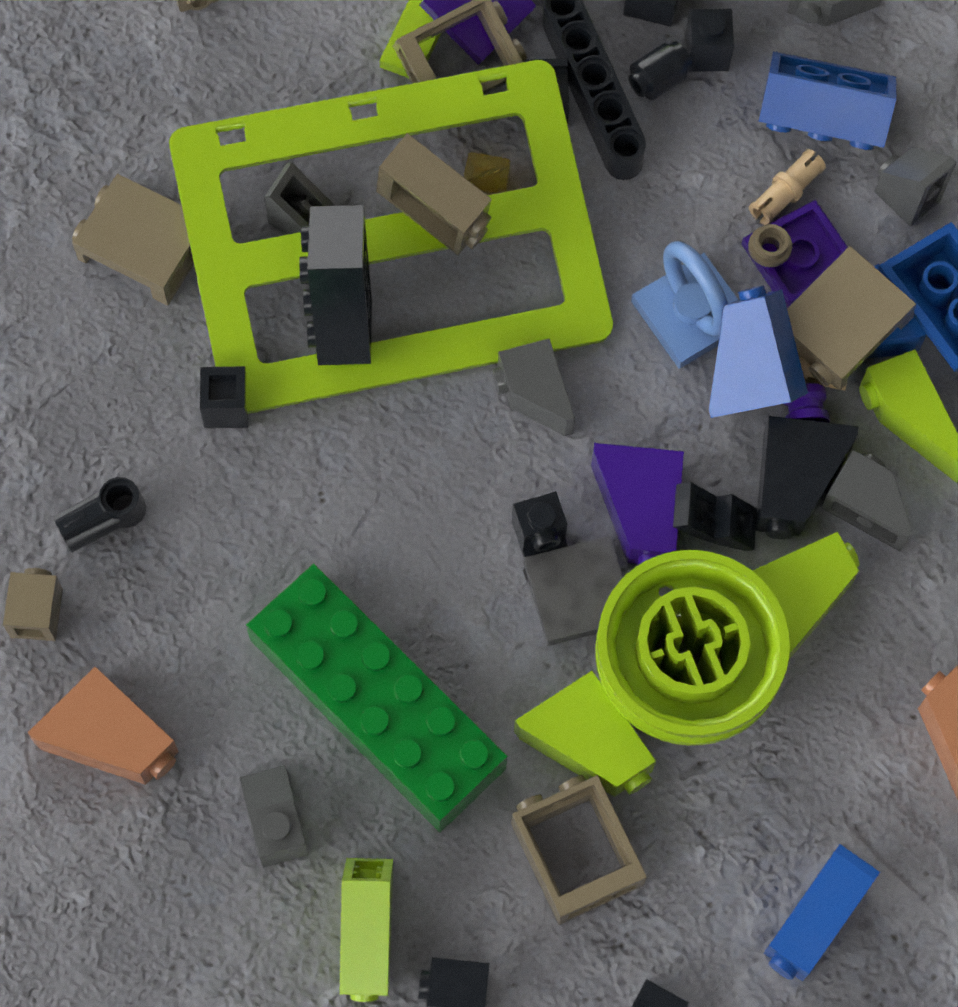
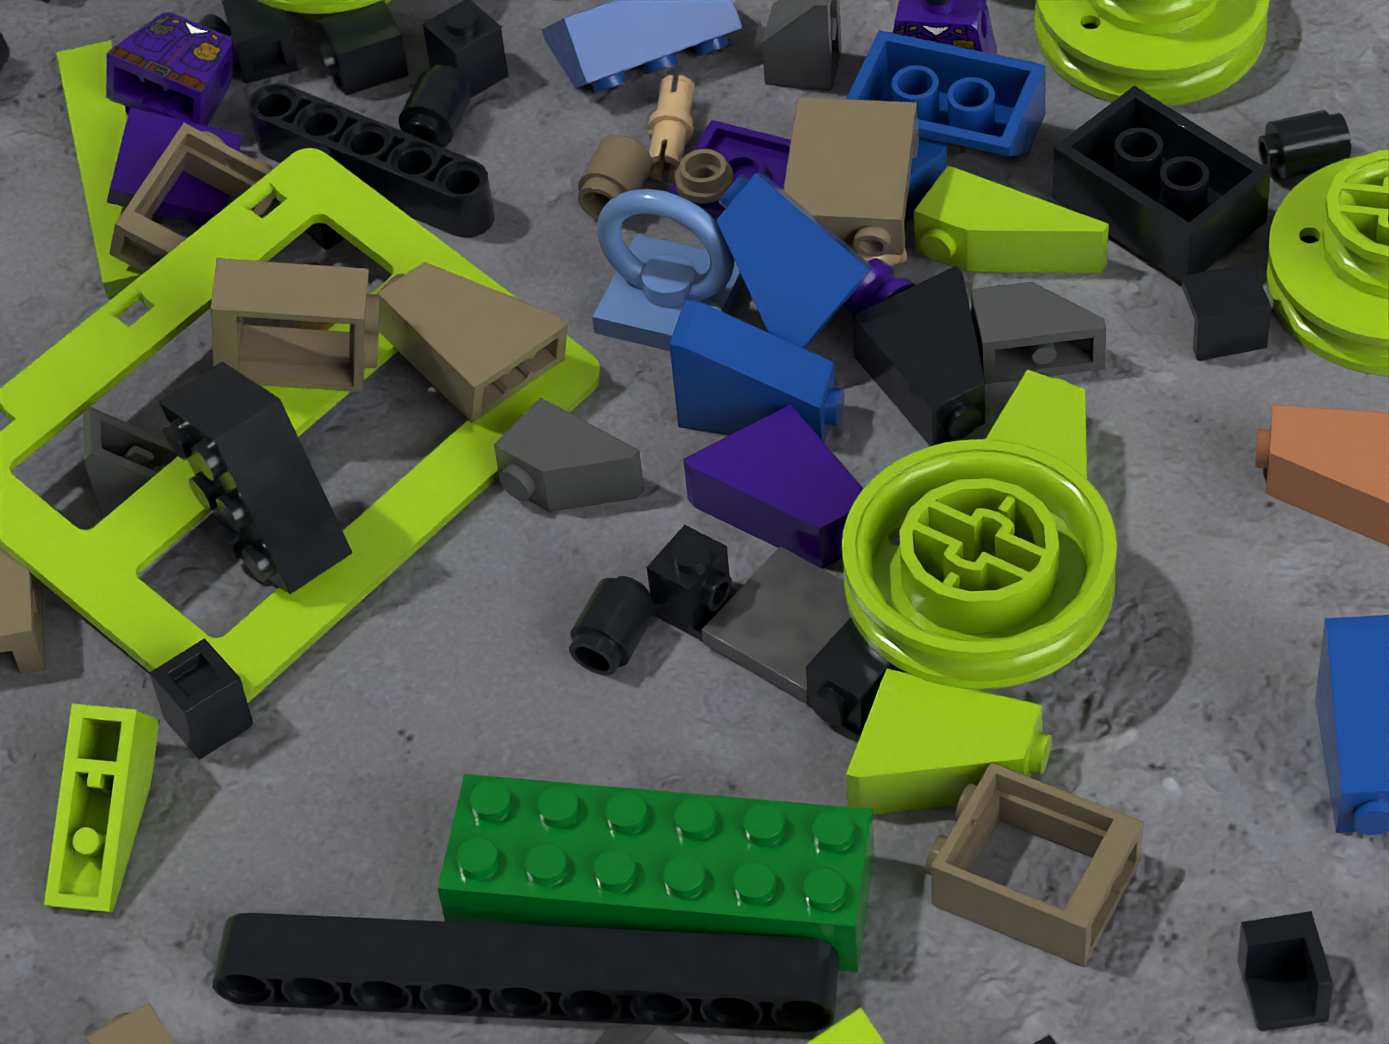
camera: 30 degrees left, 20 degrees down
(96, 518) = (146, 916): black piece -> none
(126, 423) = (99, 804): none -> lime slope
(266, 704) = (528, 972): none -> black beam
(477, 516) = (611, 625): none -> black brick
(539, 265) = (468, 336): none -> dark tan slope
(571, 654) = (845, 679): none -> black brick
(678, 414) = (739, 374): none -> blue slope
(714, 518) = (869, 451): black slope -> none
(722, 202) = (615, 168): none -> dark tan brick

